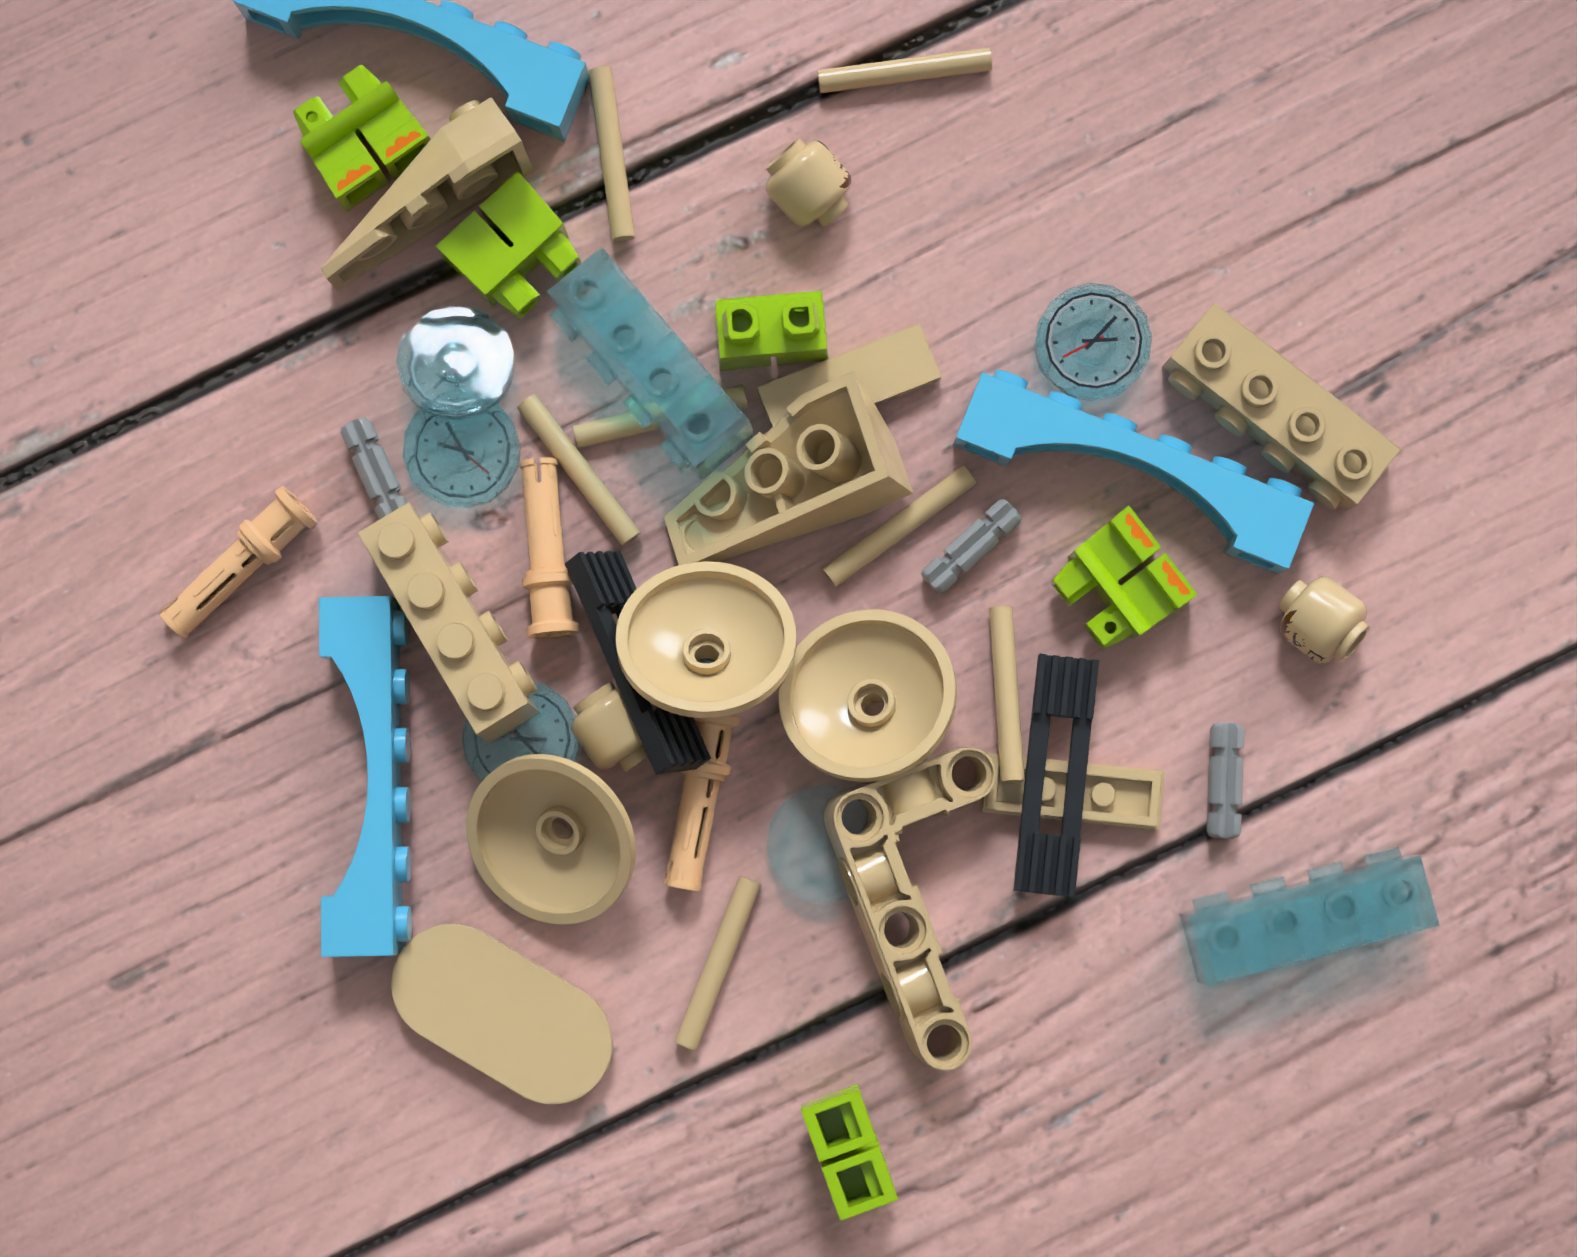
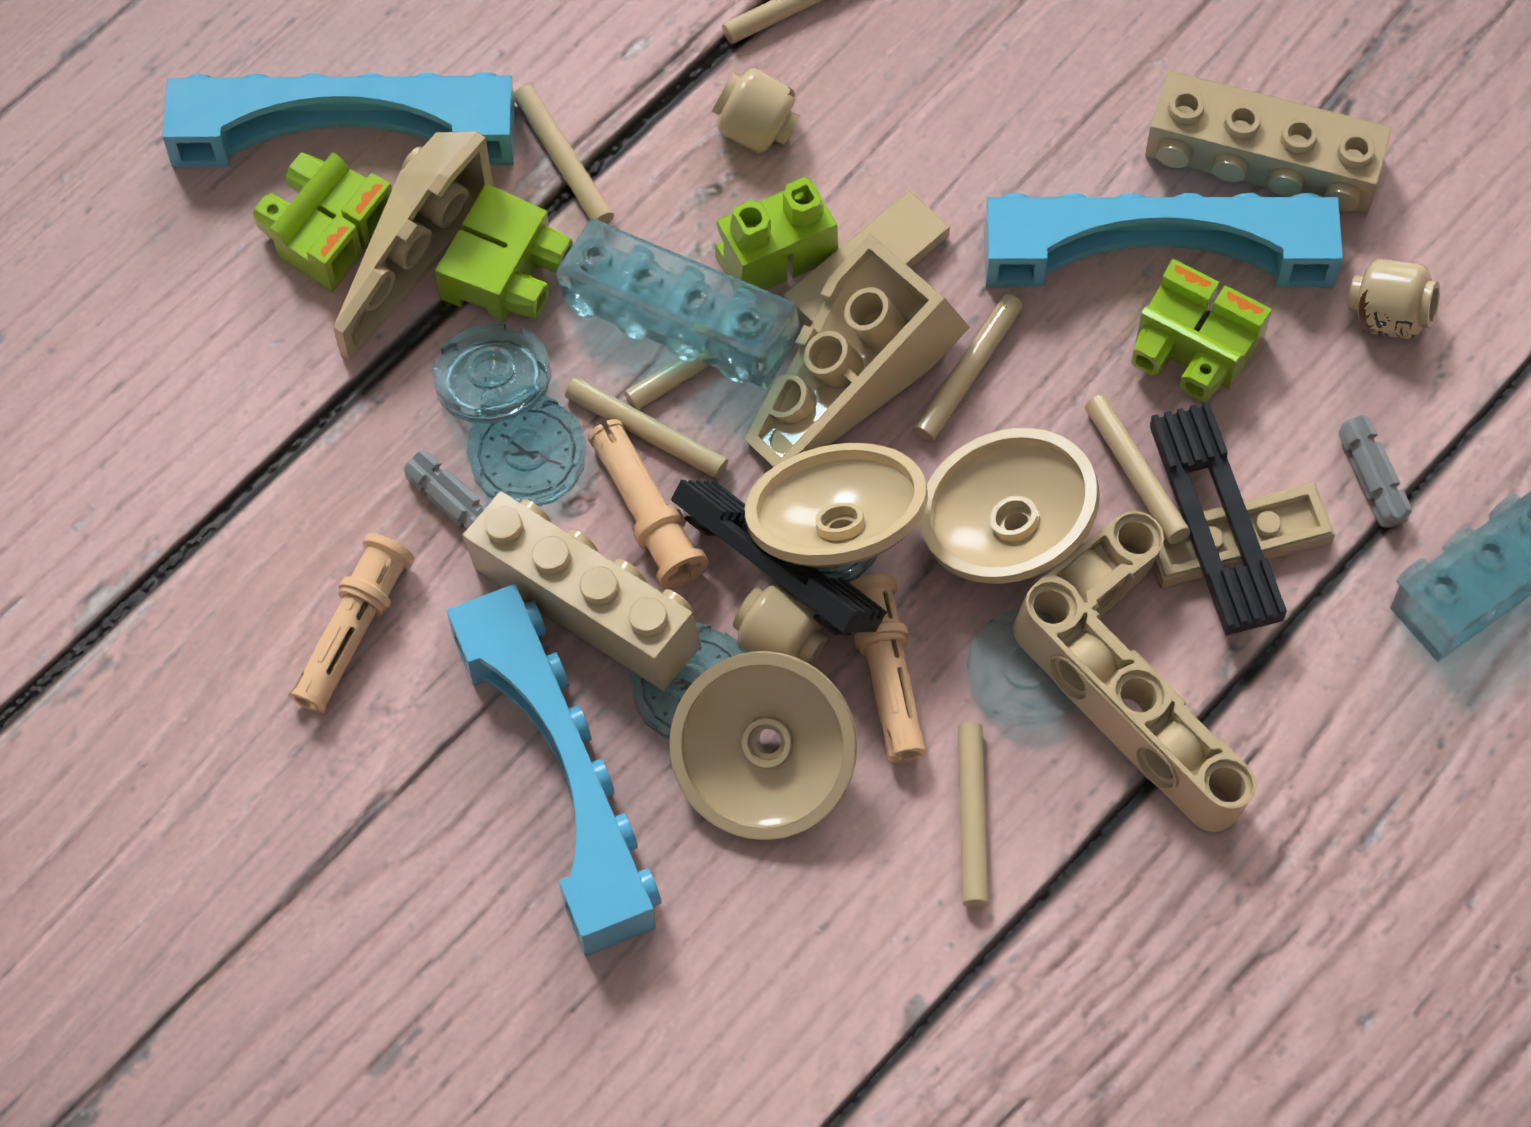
camera: 25 degrees left, 20 degrees down
(502, 1013) = (781, 941): tan tile -> none
(849, 1152) = (1187, 930): lime hips -> none
(971, 546) = (1043, 359): light grey axle -> none
(1092, 342) = (1073, 150): clear light blue tile -> none

